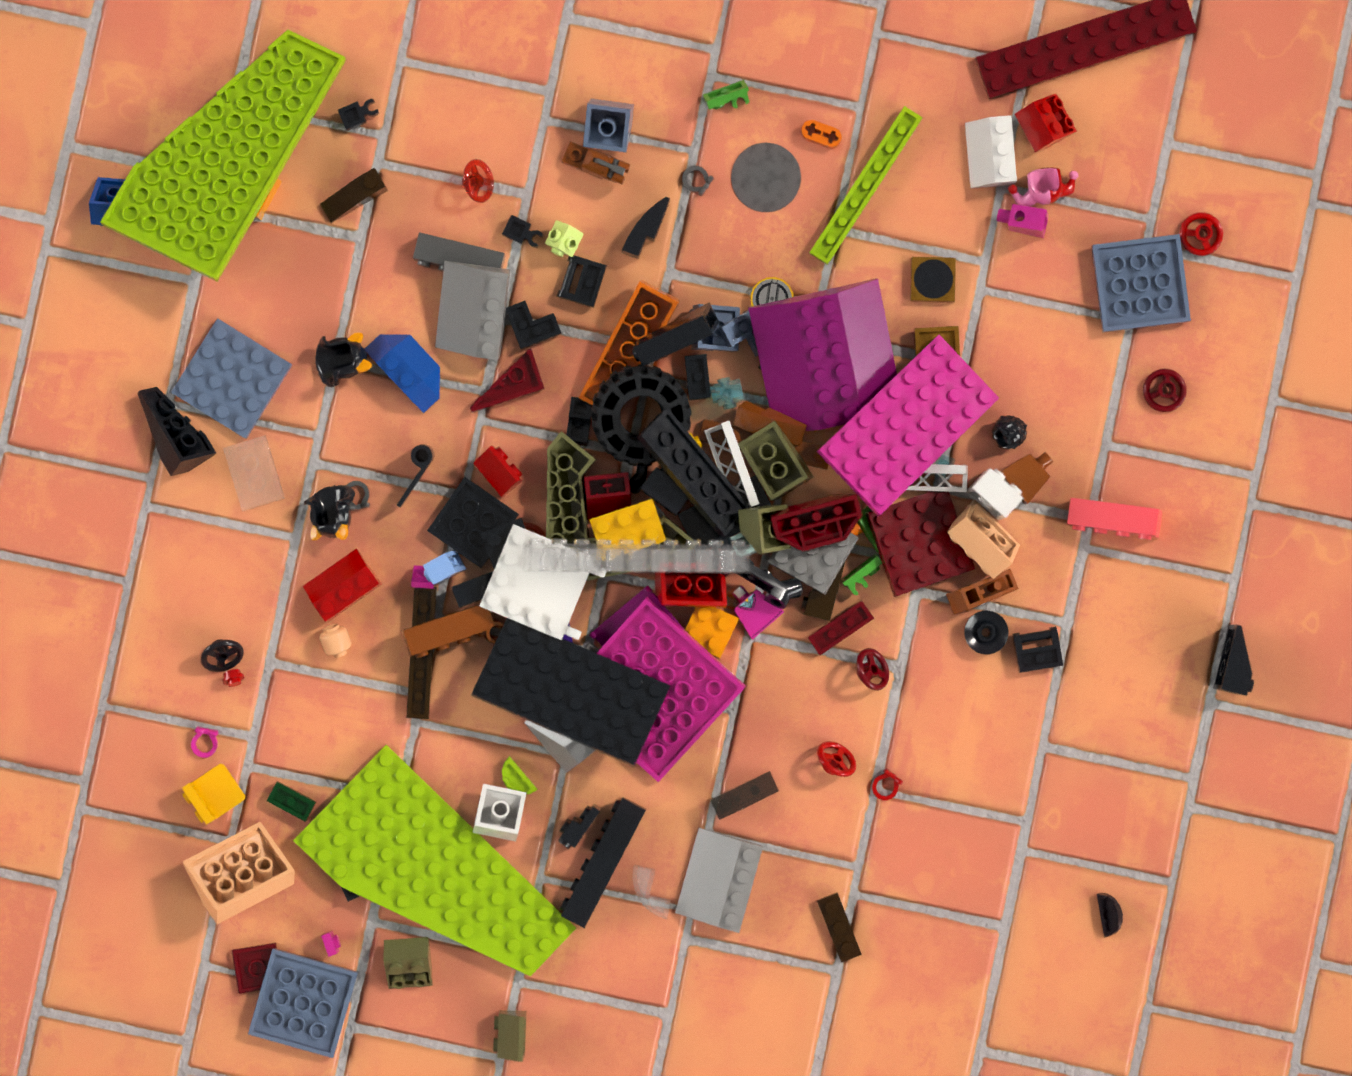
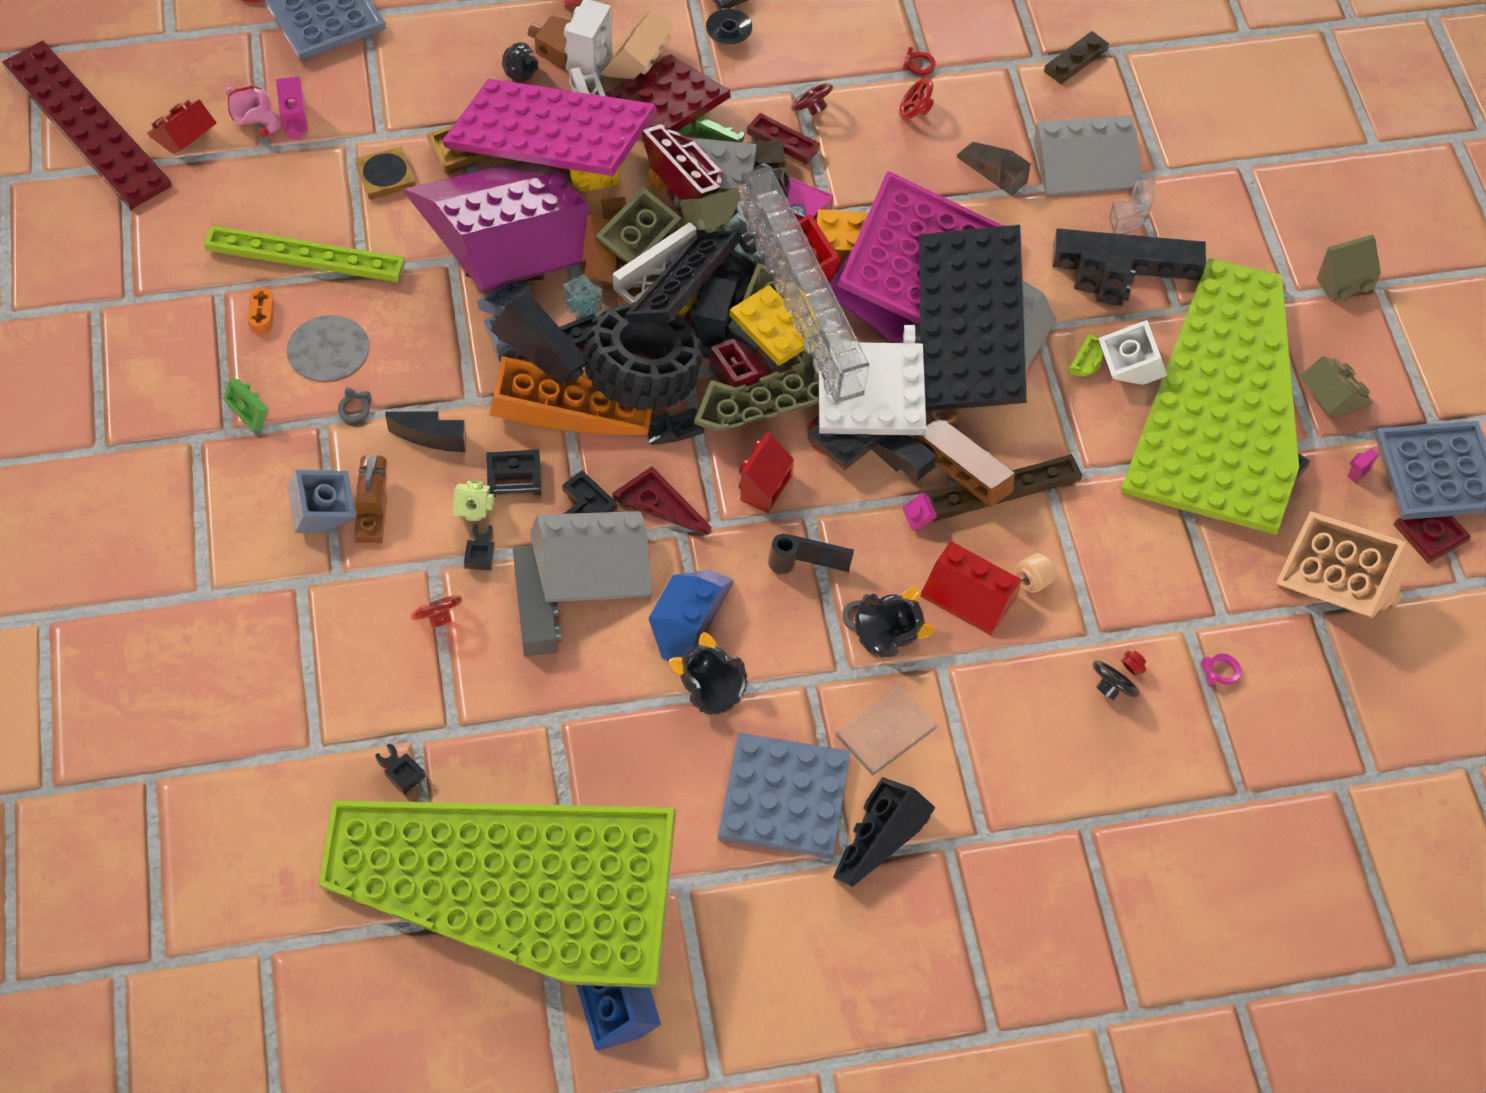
camera: 115 degrees left, 30 degrees down
(213, 794) = (1274, 636): yellow bracket -> none
(291, 801) = (1235, 556): dark green plate -> none
(354, 195) = (502, 735): dark brown slope -> none
(443, 567) = (900, 485): light blue slope -> none
(466, 517) = (831, 493): black plate -> none
(770, 290) = (459, 299): tile -> none
(981, 592) = (696, 43): dark orange slope -> none
(991, 152) = (229, 159): white slope -> none

